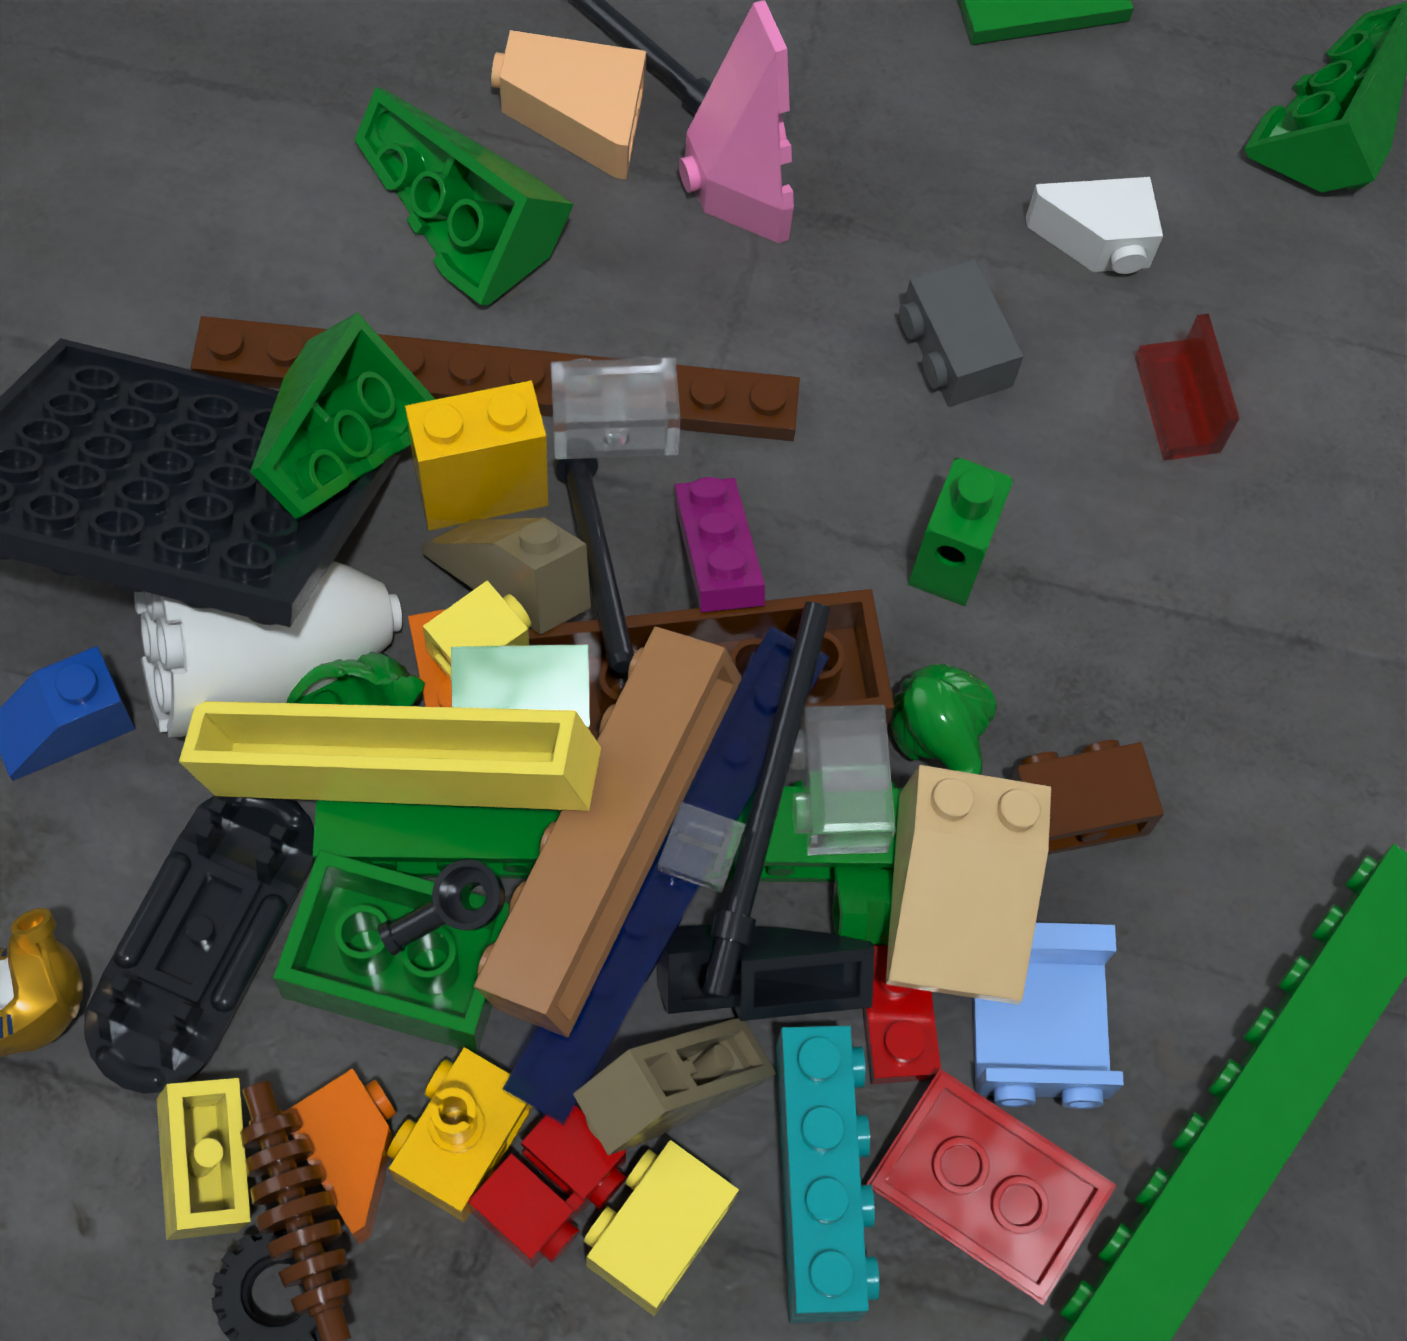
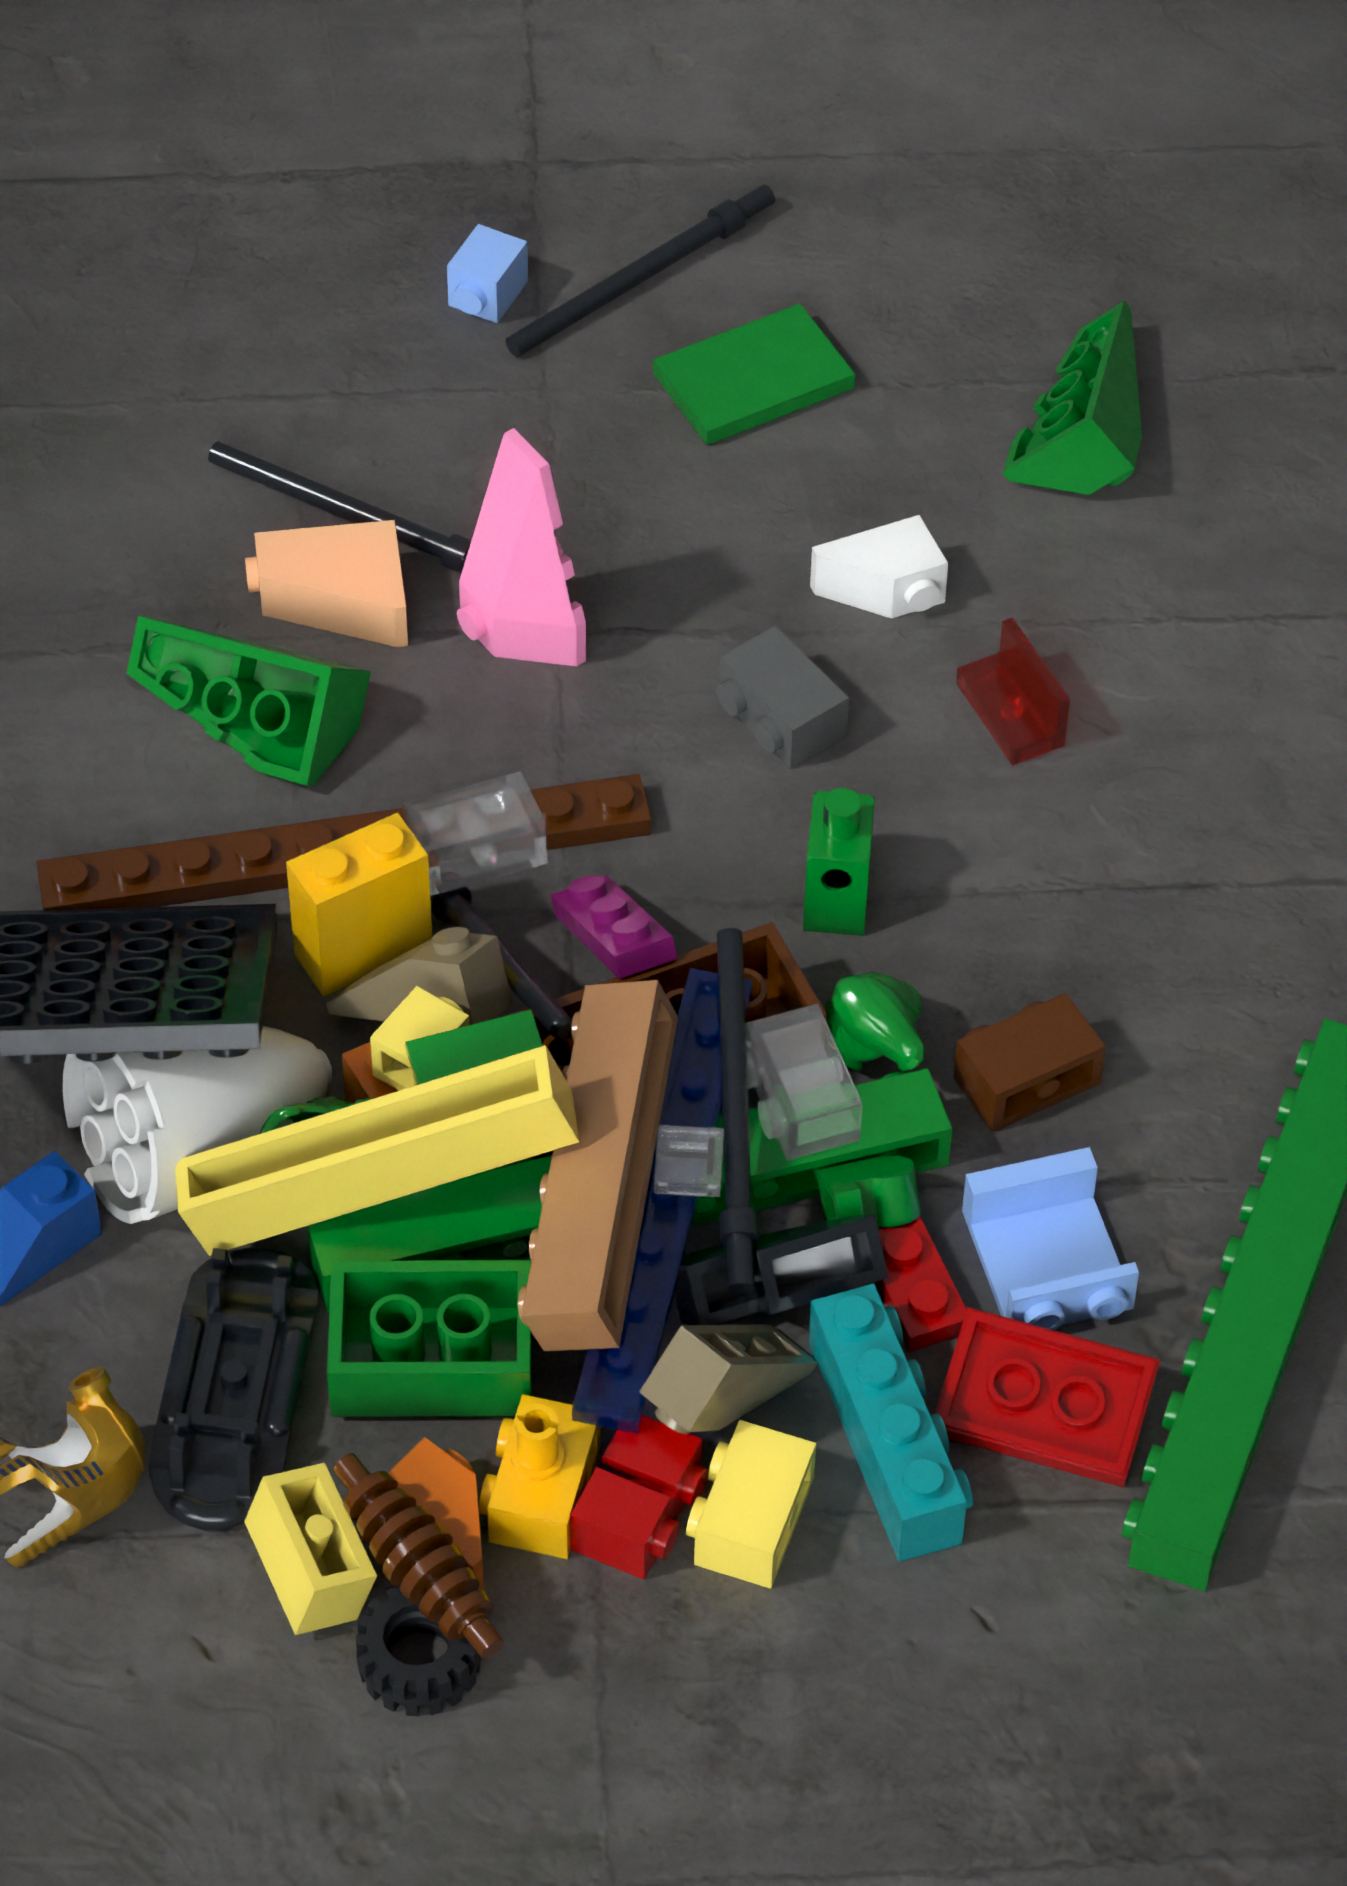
camera: 10 degrees left, 15 degrees down
(335, 416) = (217, 889): green wedge -> none
(448, 905) = (472, 1246): black bar -> none
(967, 883) = (941, 1134): tan slope -> none

